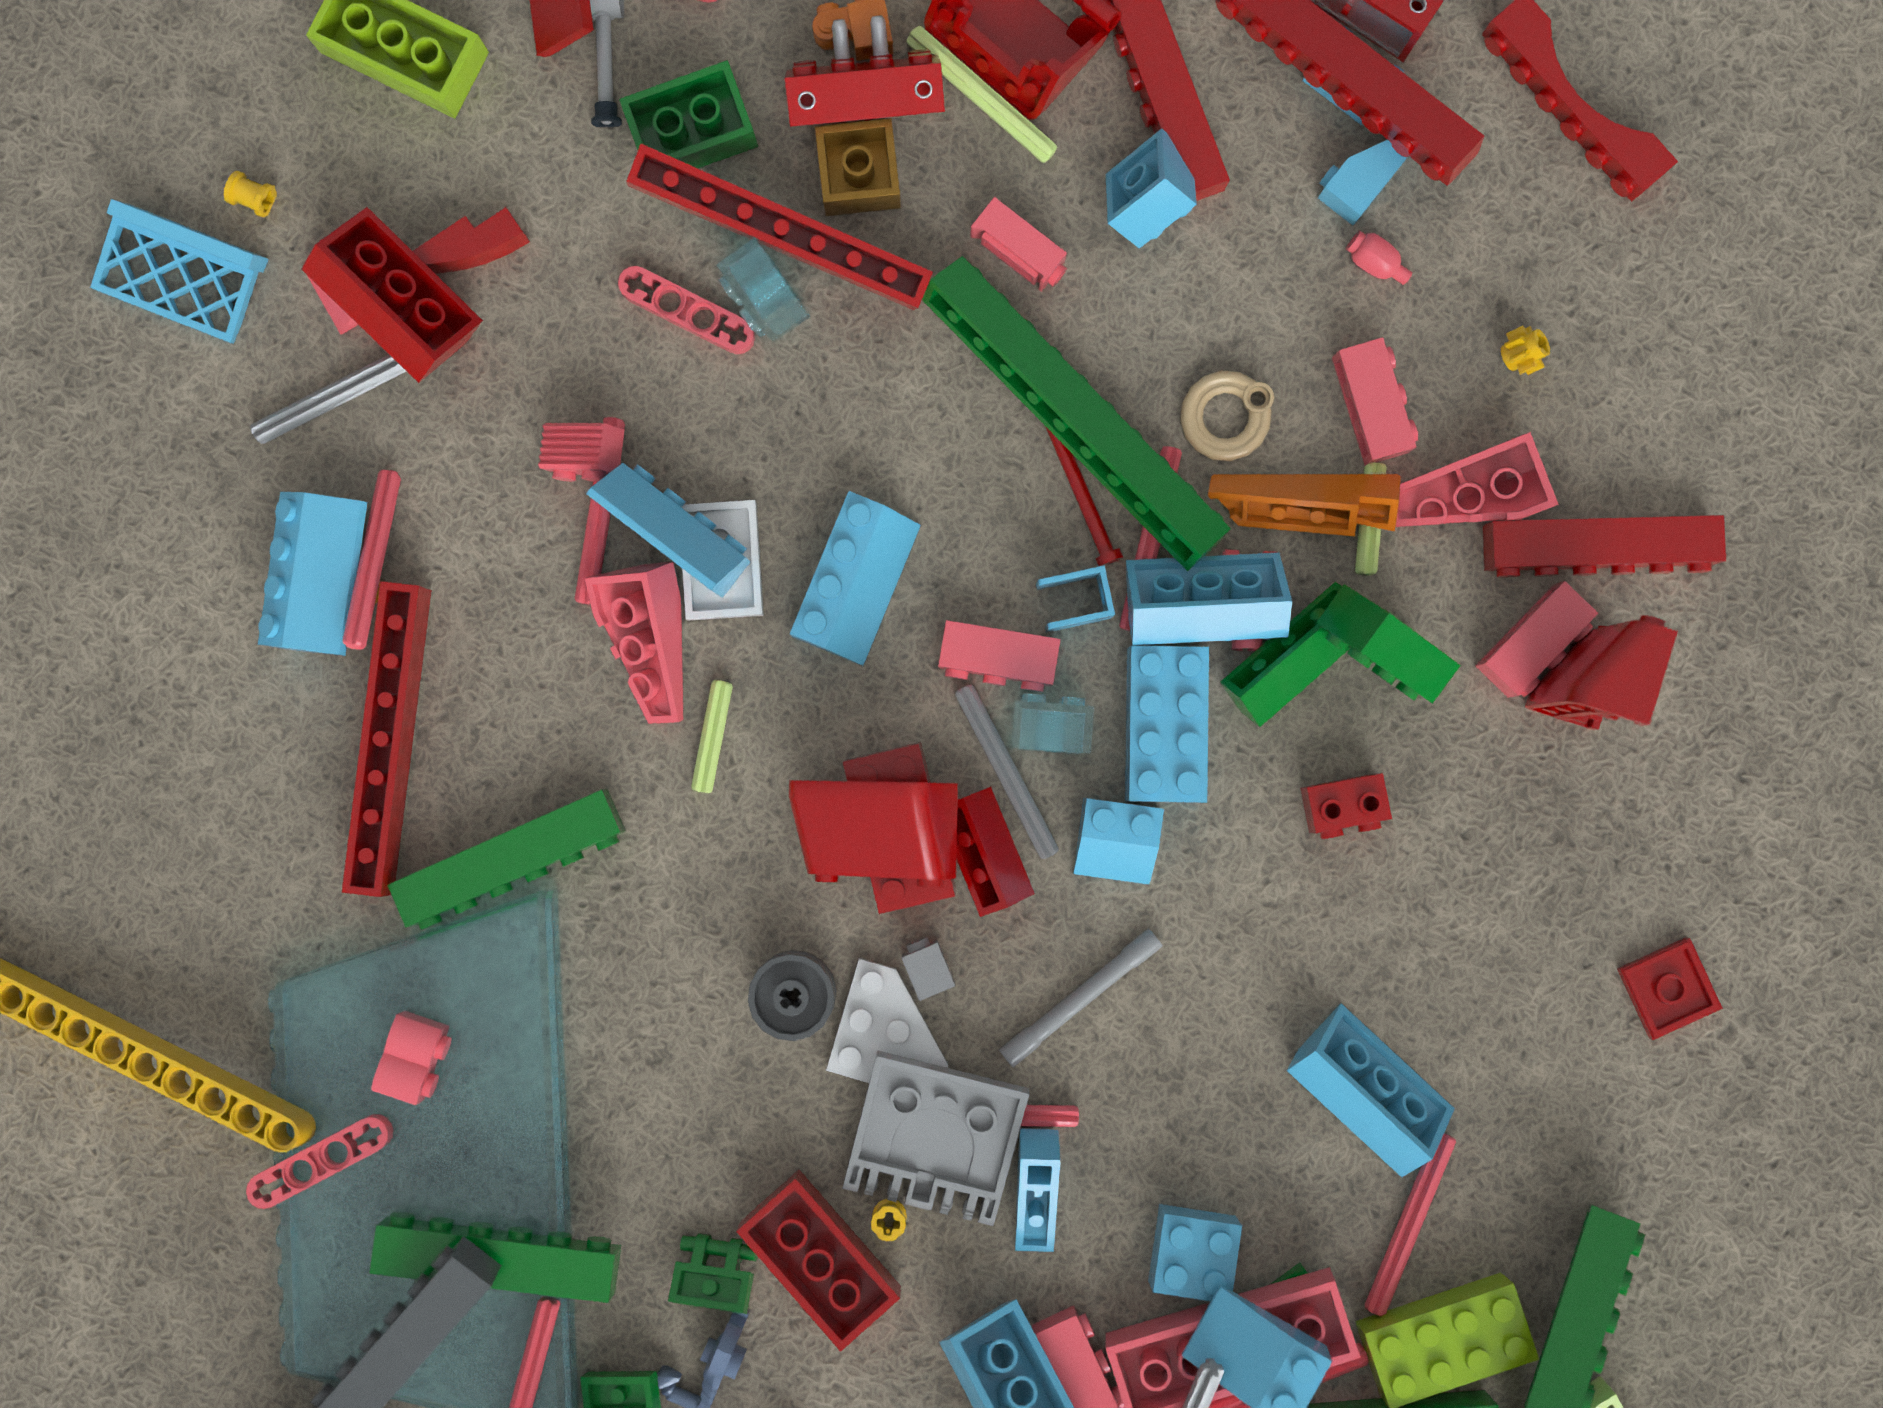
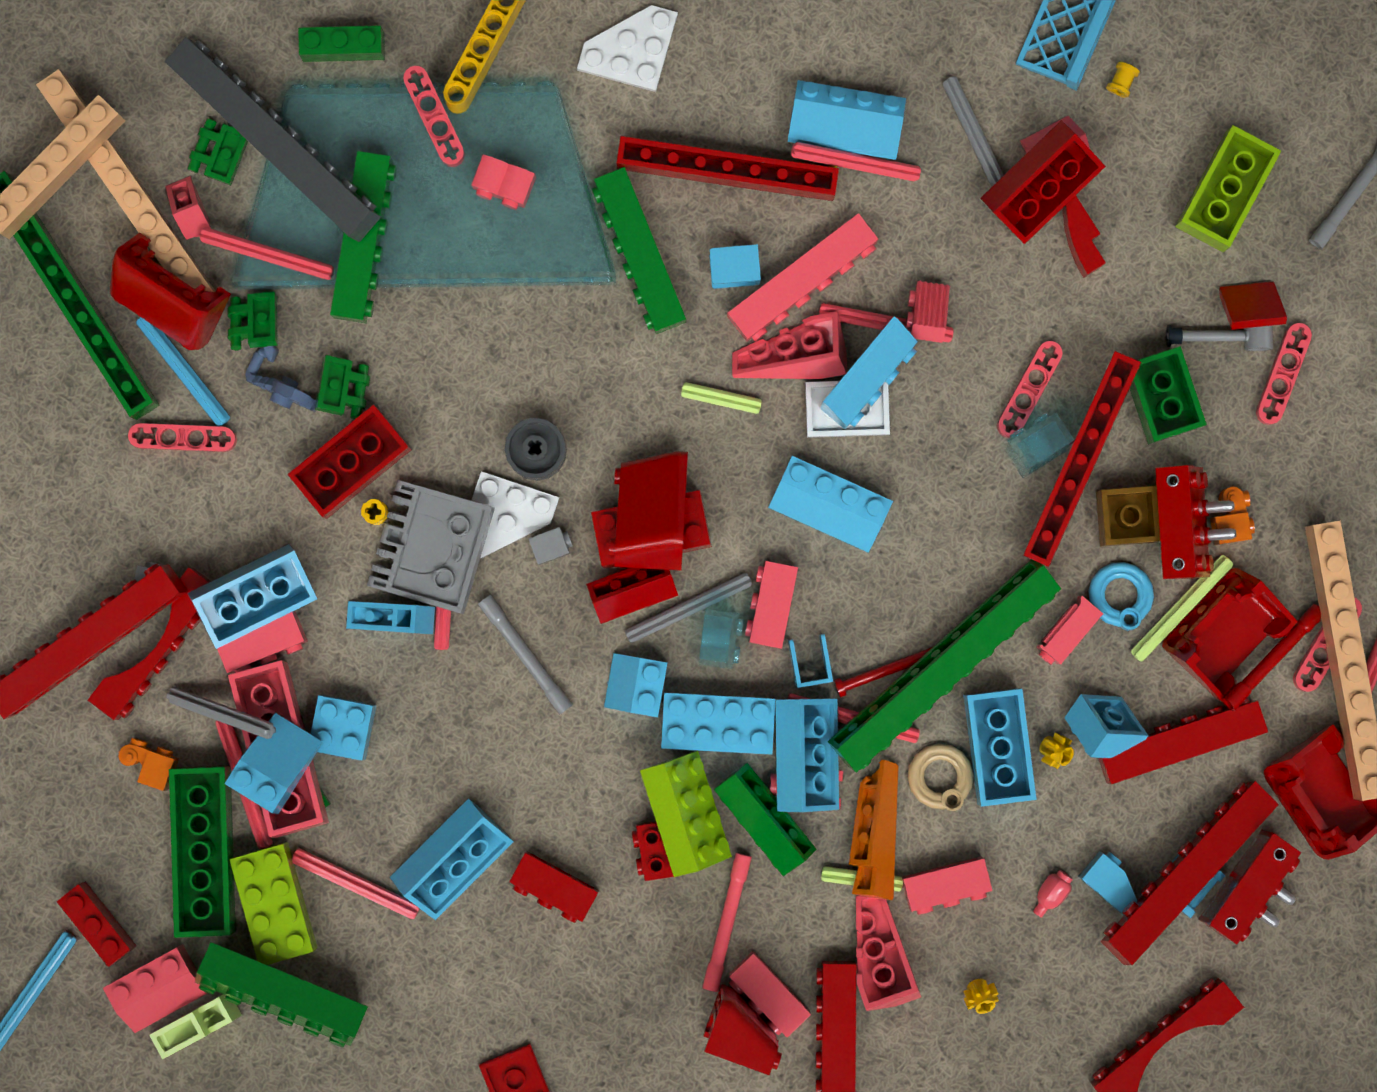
camera: 90 degrees right, 0 degrees up
(220, 1297) = (341, 43): none -> green brick
(222, 880) = (632, 49): none -> white plate
(525, 723) = (735, 266): none -> medium azure piece
(539, 628) = (802, 278): none -> coral brick
(961, 145) = (1140, 581): none -> medium azure piece
(1184, 333) = (999, 747): none -> medium azure brick
(1185, 257) = (1056, 750): none -> yellow gear
(1297, 764) = (686, 814): none -> lime brick
(1387, 643) = (768, 880): green brick -> none
(1404, 945) = (553, 887): none -> red brick
(1499, 715) = (716, 965): none -> coral piece

